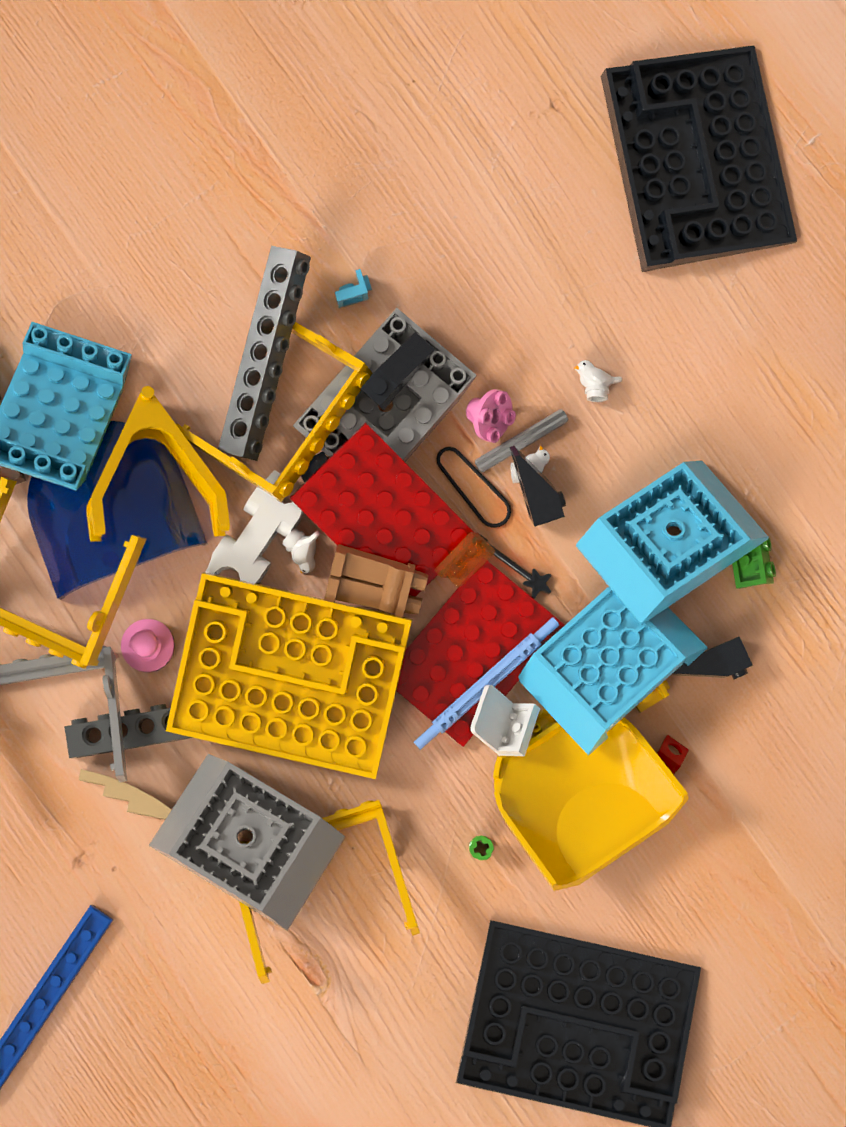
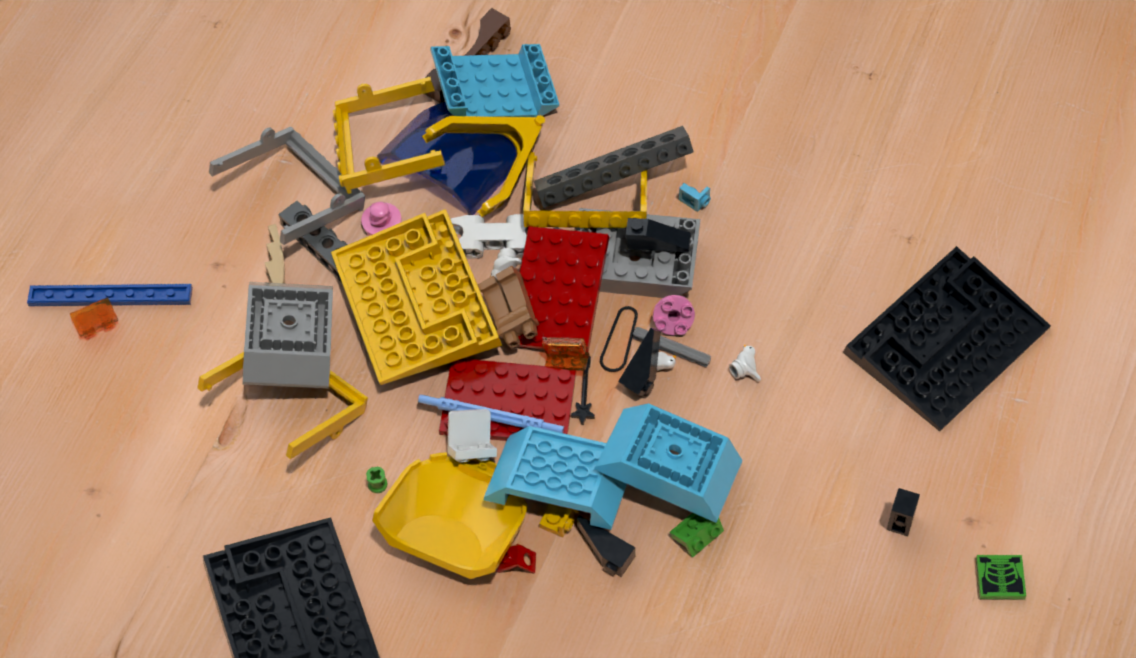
camera: 60 degrees right, 25 degrees down
(65, 1039) = (94, 317): none -> clear orange bracket

